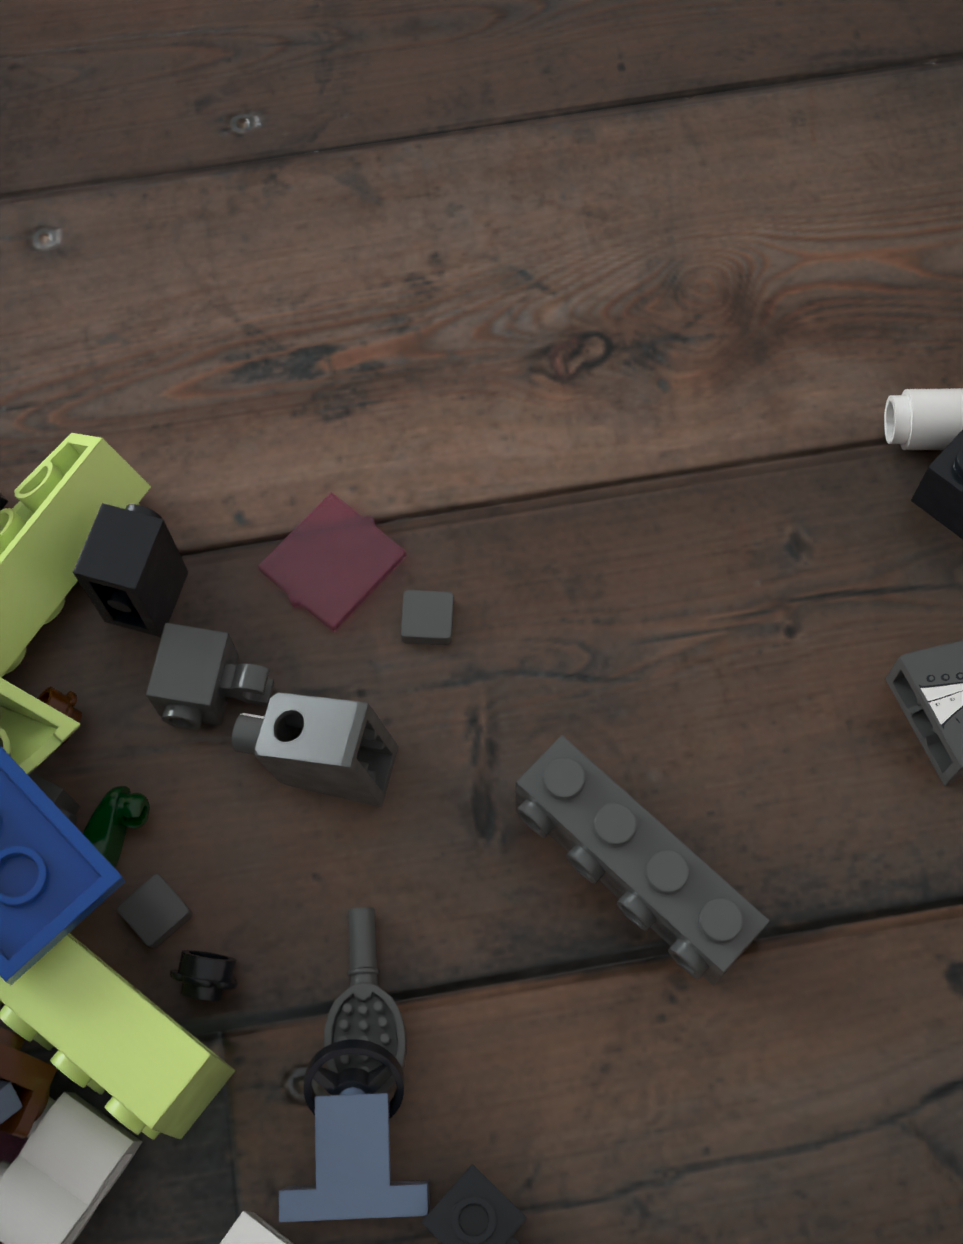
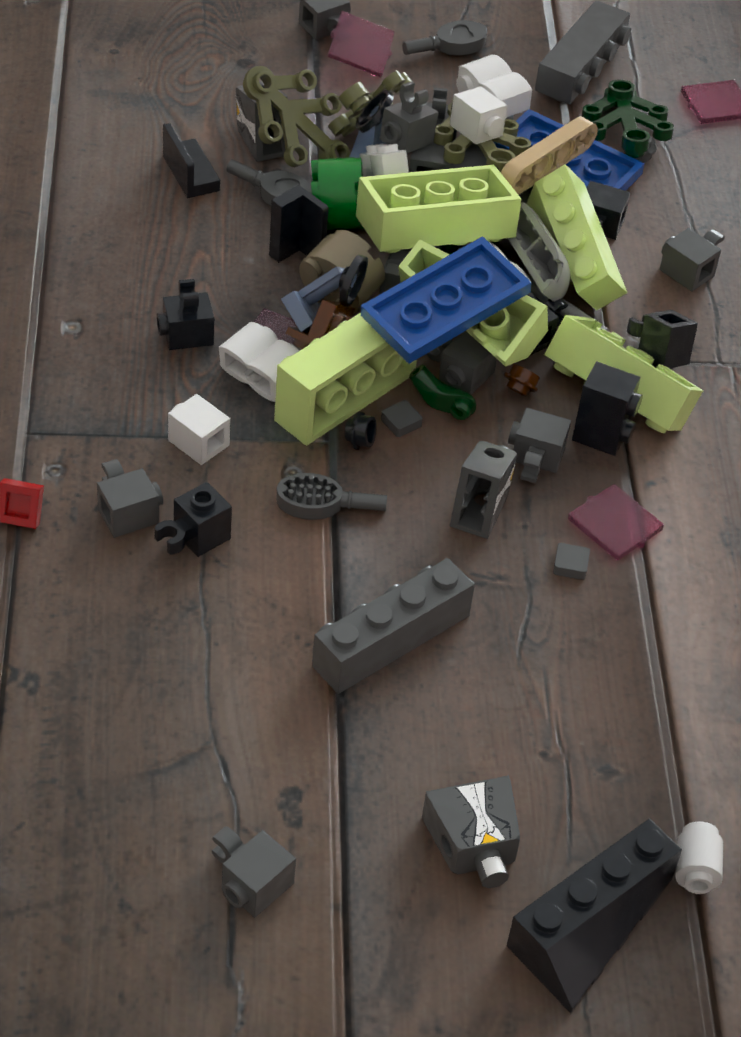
camera: 90 degrees right, 20 degrees down
(353, 1144) = (256, 466): sand blue piece -> none

